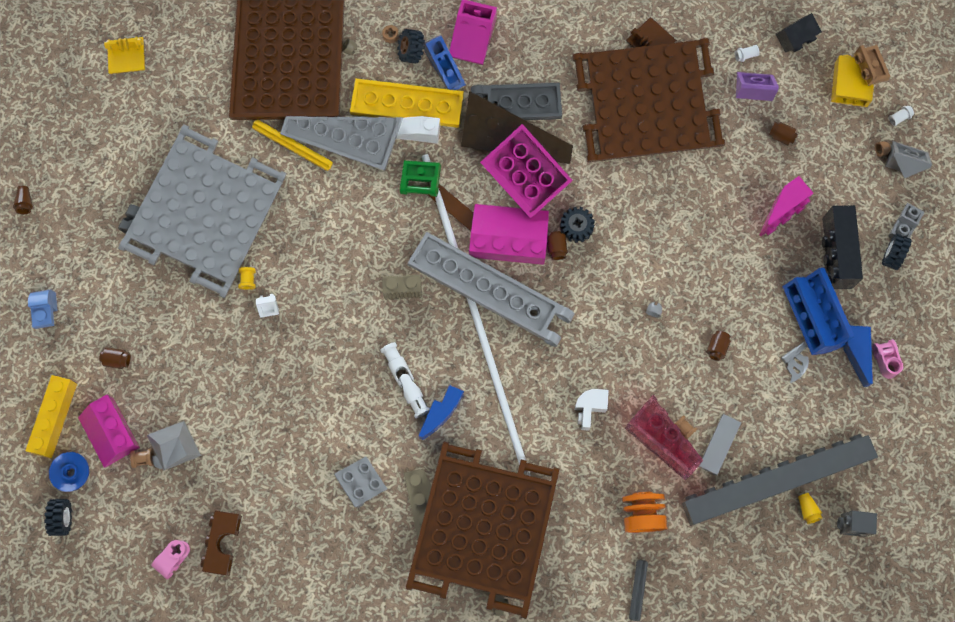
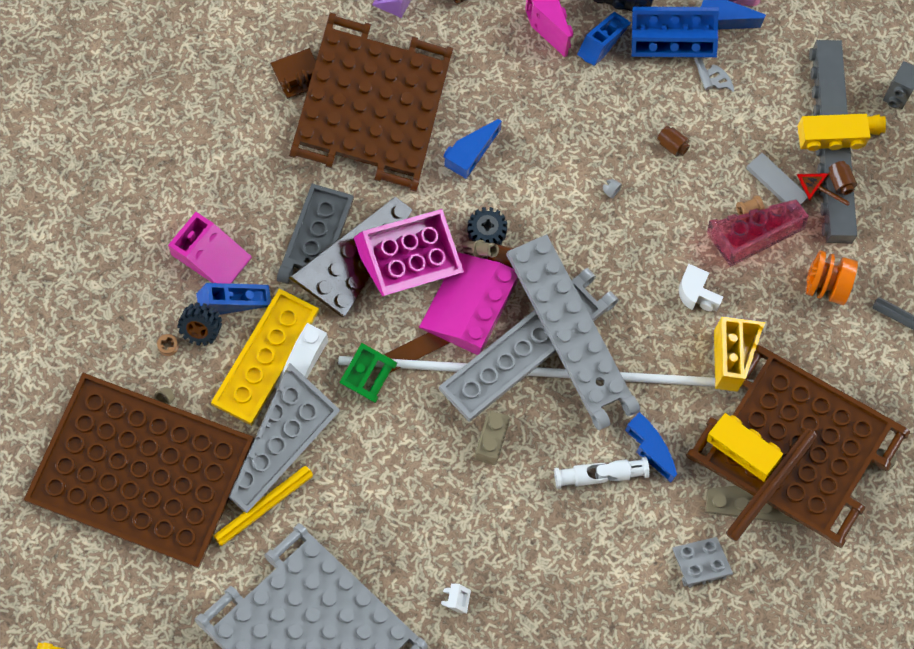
camera: 75 degrees left, 5 degrees down
(247, 278) = (414, 611): yellow bush -> none
(437, 514) = (771, 484): none -> reddish brown axle
(461, 482) = (745, 446): none -> yellow brick
(513, 313) = (571, 329): none -> light grey hinge
(546, 451) = (734, 350): none -> yellow wedge
(554, 223) = (480, 248): none -> dark tan axle
(639, 188) = (470, 149): none -> blue slope
(728, 472) = (812, 183): none -> piece
(739, 494) = (842, 178): none -> reddish brown brick
(780, 473) = (833, 131): none -> yellow brick
(788, 257) = (602, 38): none -> blue slope

